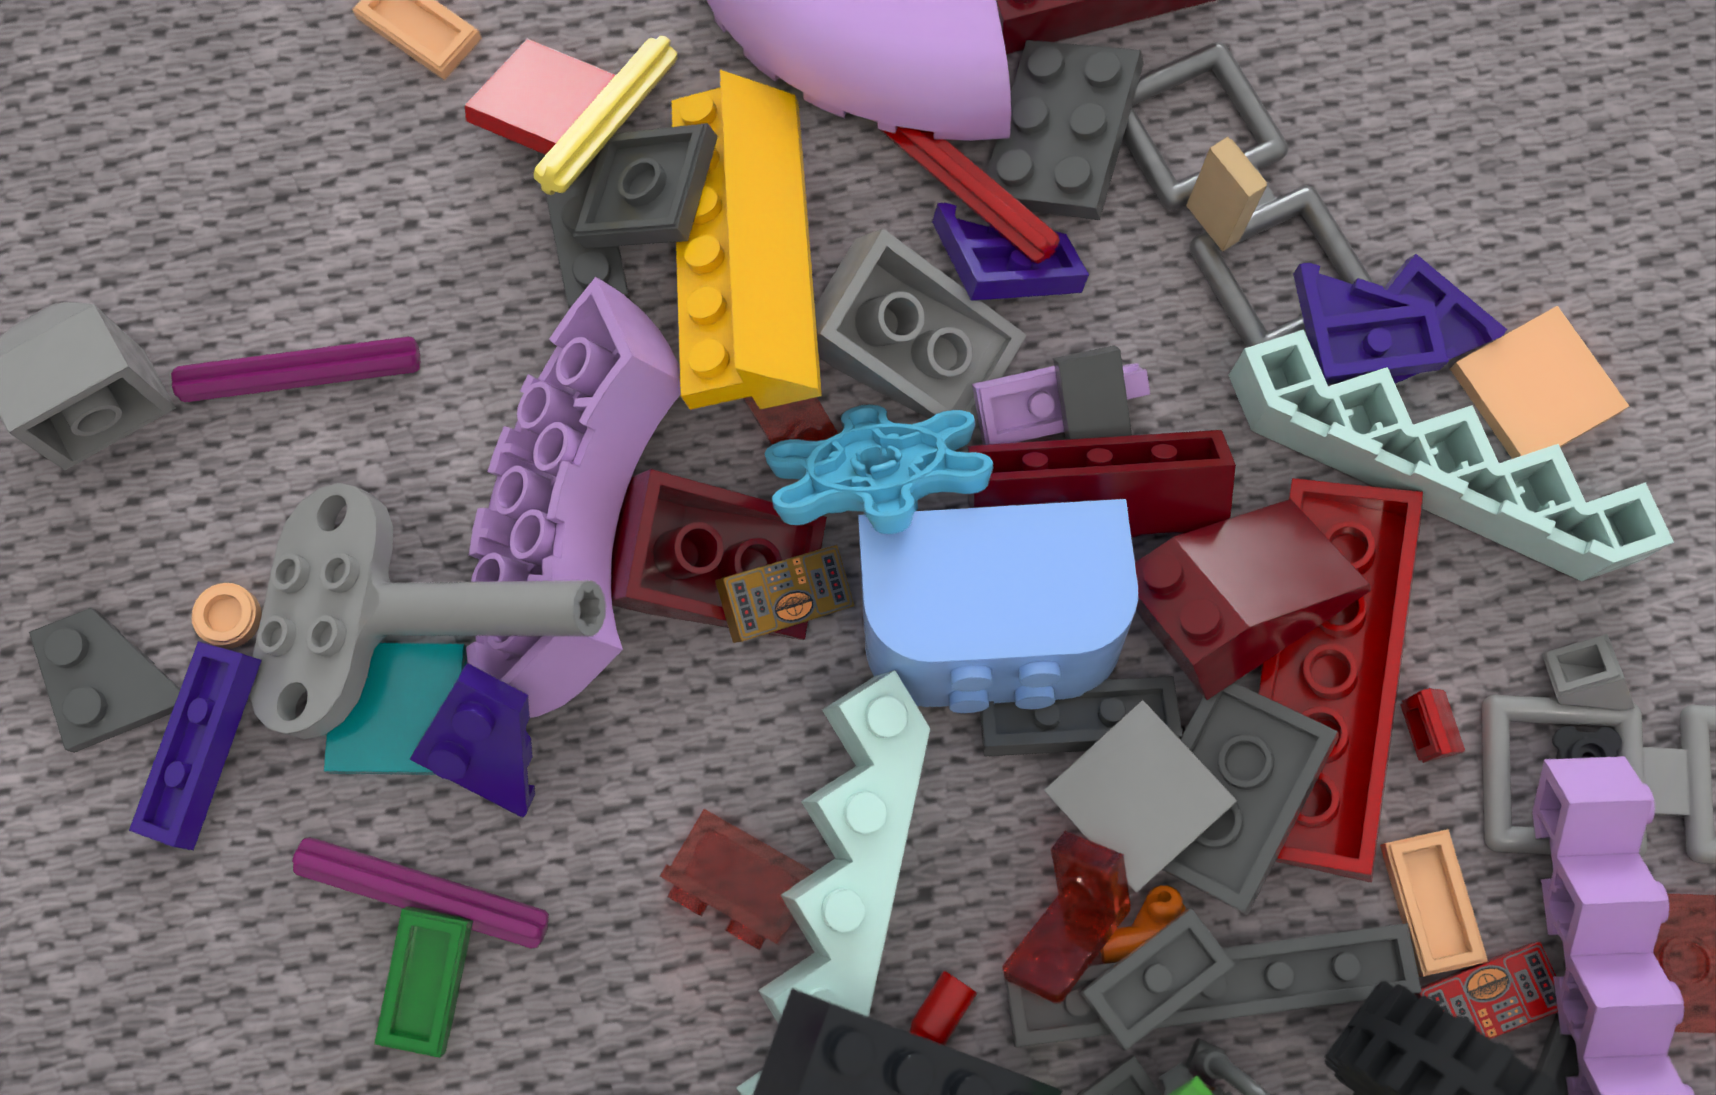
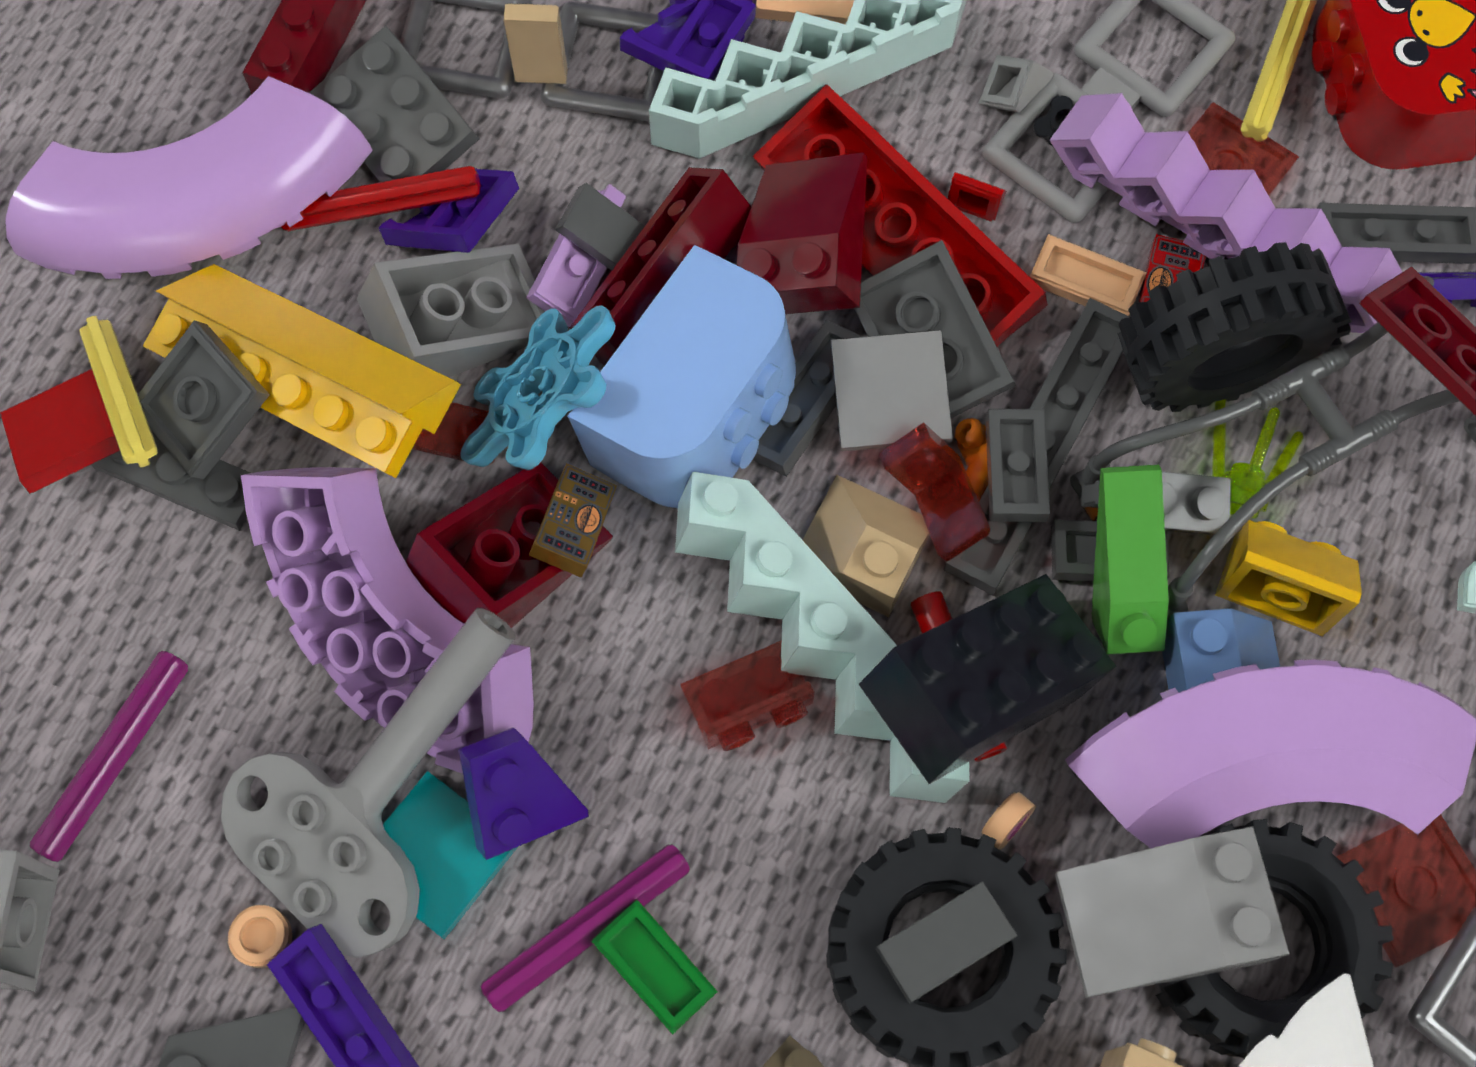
camera: 55 degrees left, 5 degrees down
(971, 879) = (867, 542): none -> tan slope

